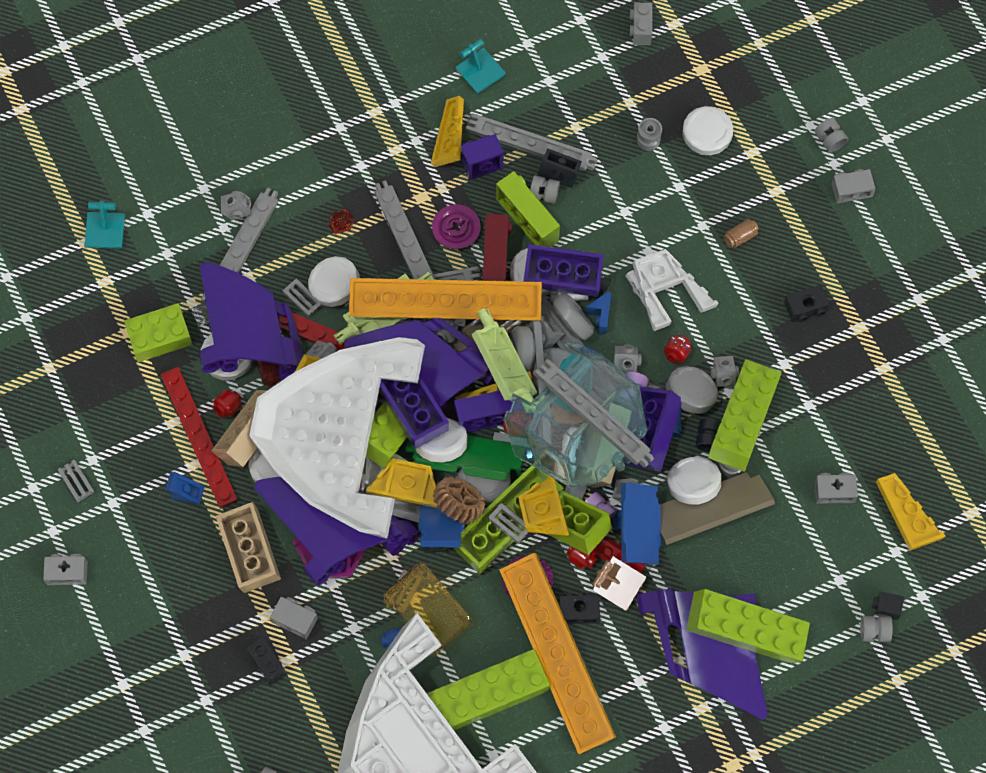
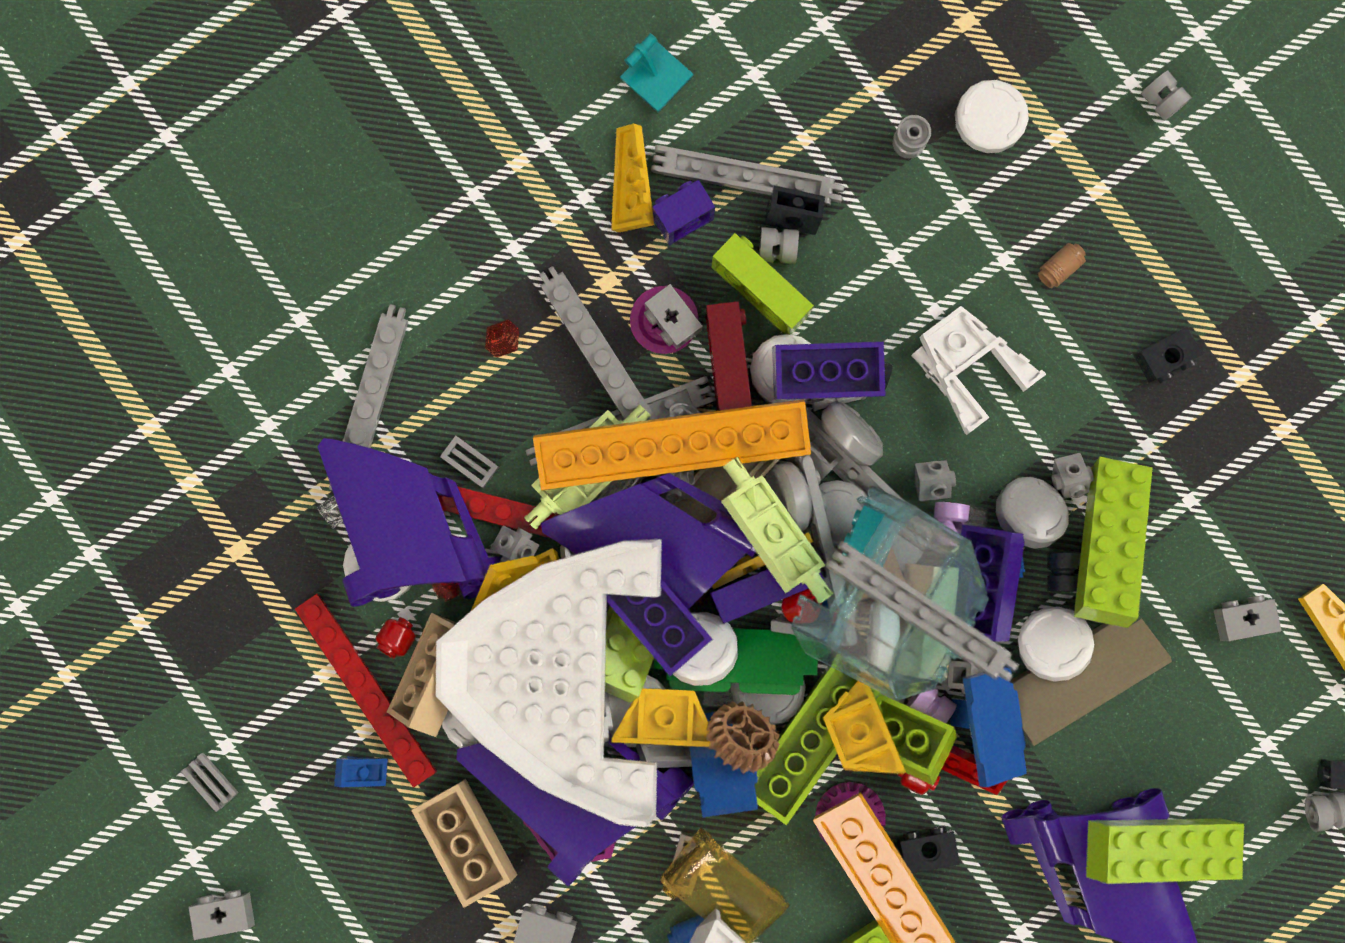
camera: 10 degrees left, 15 degrees up
(104, 228) = (172, 404): teal plate -> none
(158, 332) = (278, 550): lime brick -> none
(235, 205) = (349, 342): light grey brick -> none
(331, 281) = (506, 433): white piece -> none
(460, 214) = (670, 302): none -> light grey brick
(522, 534) = (797, 744): light grey tile -> none
(600, 308) = (888, 408): blue slope -> none
(618, 583) = (976, 807): plate -> none
(677, 349) = (1001, 452): red head -> none
(853, 185) = (1207, 168): light grey brick -> none

